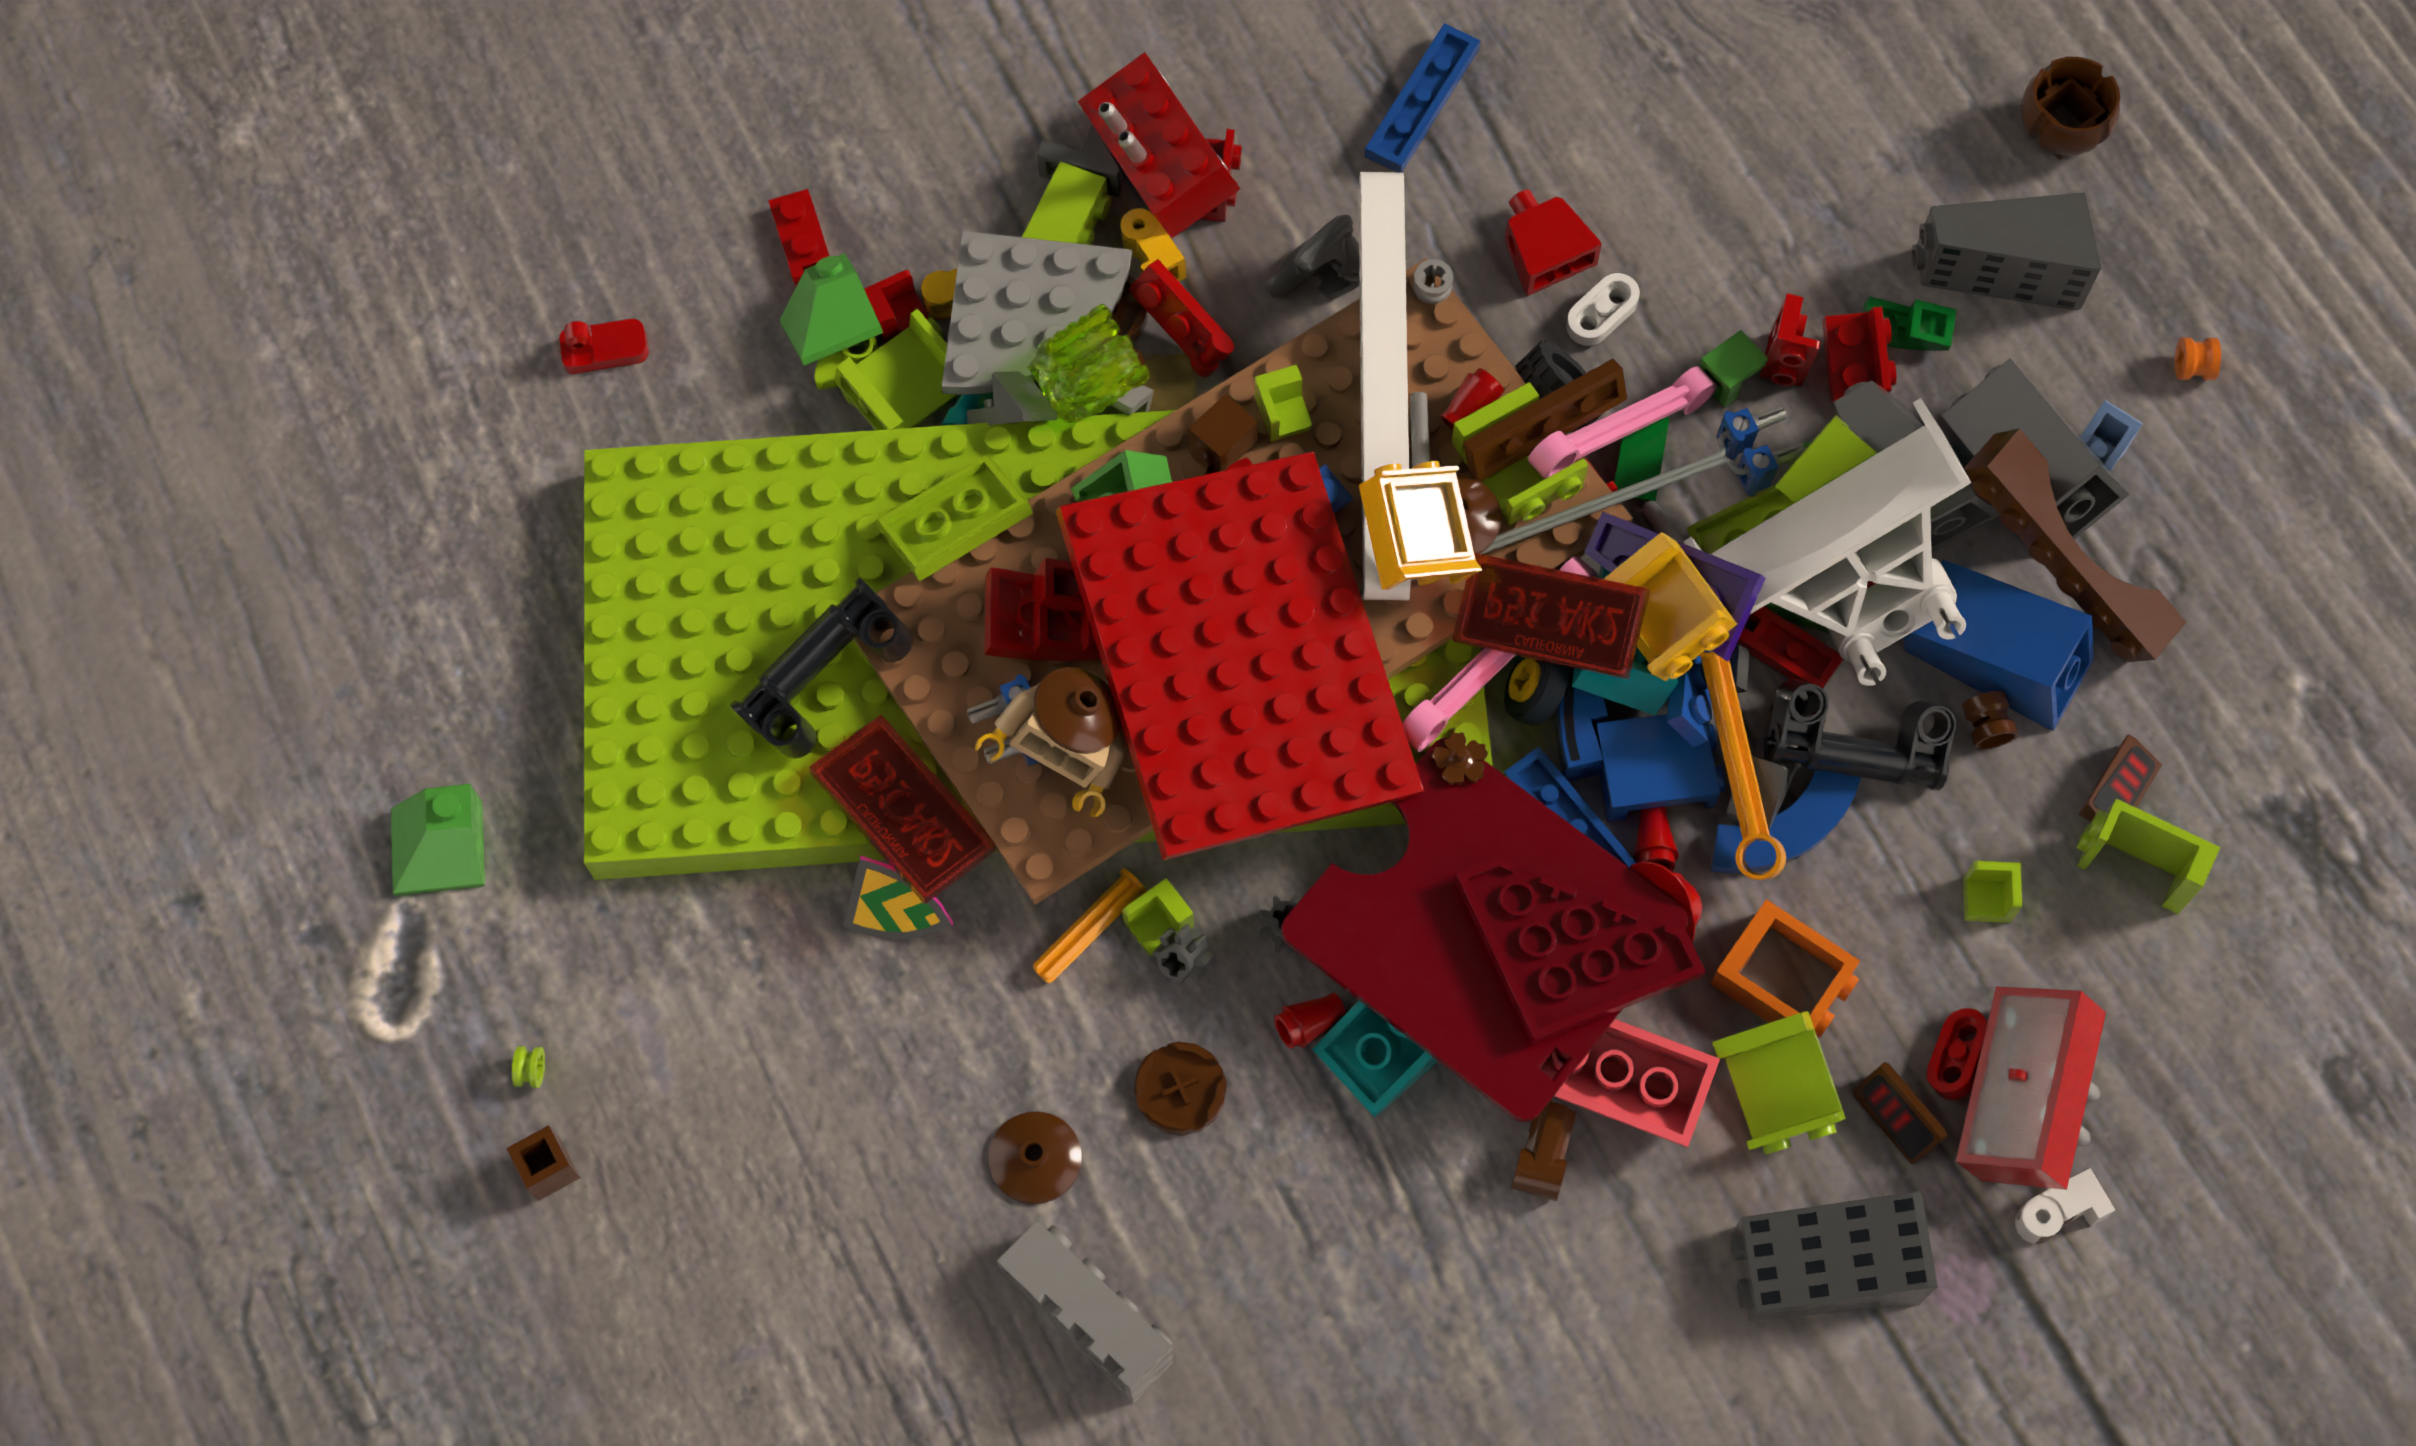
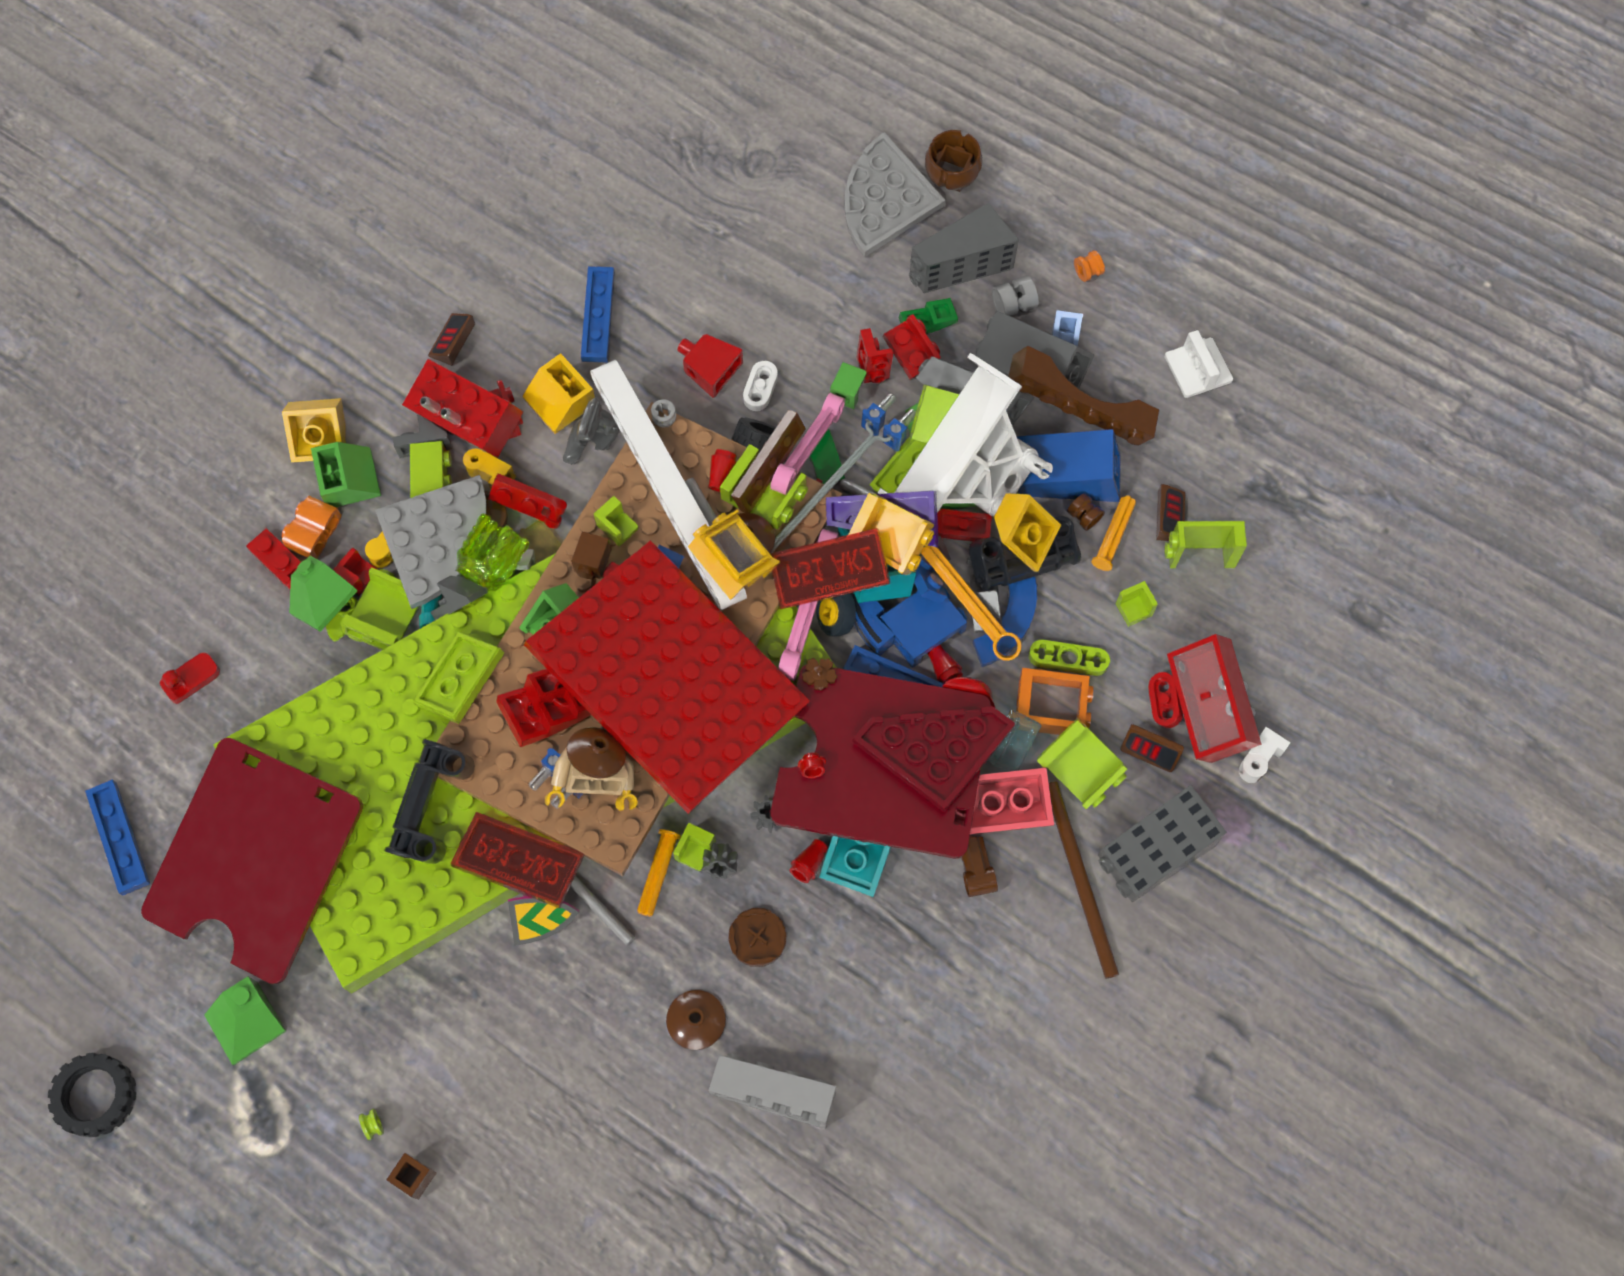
camera: 30 degrees left, 0 degrees up
(170, 806) = (65, 1081): none -> black tyre
(401, 515) = (117, 837): none -> blue plate
(559, 628) = (254, 857): none -> dark red door
(868, 216) = (311, 527): none -> orange brick
(943, 82) = (313, 425): none -> yellow slope
(951, 162) = (345, 473): none -> bright green slope
(984, 940) = (603, 913): none -> light grey bar
(1199, 40) = (452, 338): none -> slope
(1304, 186) = (558, 393): none -> yellow slope
(1377, 883) = (812, 765): none -> red plate
(1689, 1249) = (1082, 883): none -> reddish brown piece
(1696, 1005) = (1017, 744): none -> clear light blue slope
(1875, 698) = (1026, 528): none -> yellow slope
(1883, 928) = (1049, 648): none -> lime beam
(1941, 115) = (886, 196): none -> light grey plate
(2017, 773) = (1114, 534): none -> light orange axle
(2040, 350) = (1018, 296): none -> light grey wheel
(2287, 586) = (1198, 365): none -> white bracket

